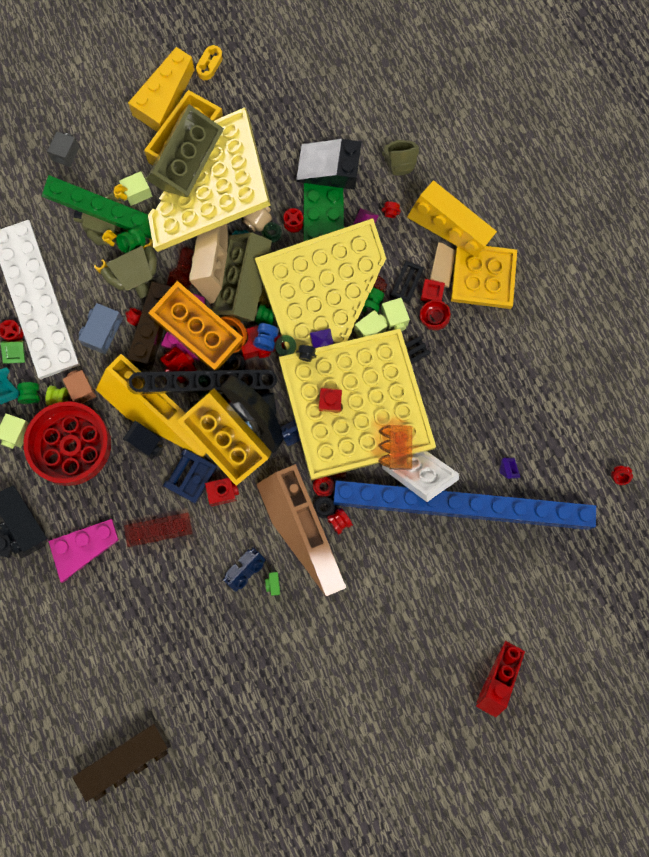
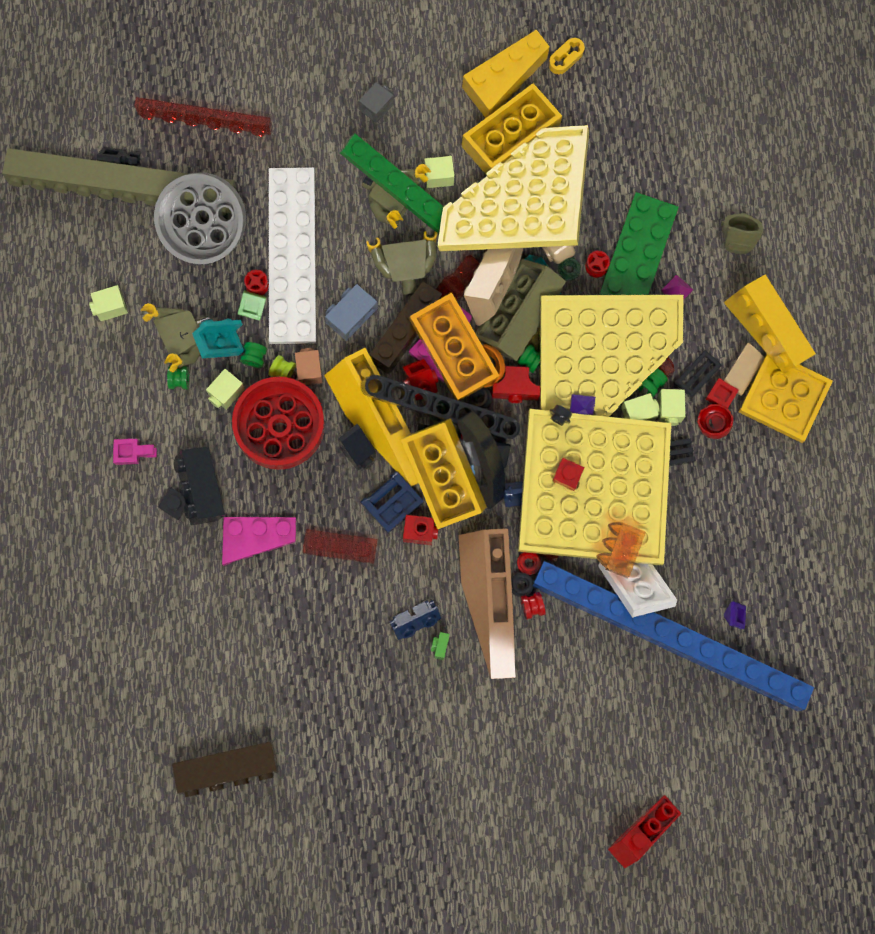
camera: 20 degrees right, 0 degrees up
(130, 240) = (414, 229): green wheel -> none
(133, 316) = (390, 311): red plate -> none
(185, 152) = (506, 154): olive slope -> none
(266, 337) = (523, 383): blue wheel -> none
(285, 338) = (541, 391): clear green plate -> none
(330, 163) = (659, 215): slope -> none
(391, 209) = (709, 288): red plate -> none
(622, 479) = (857, 671): red plate -> none

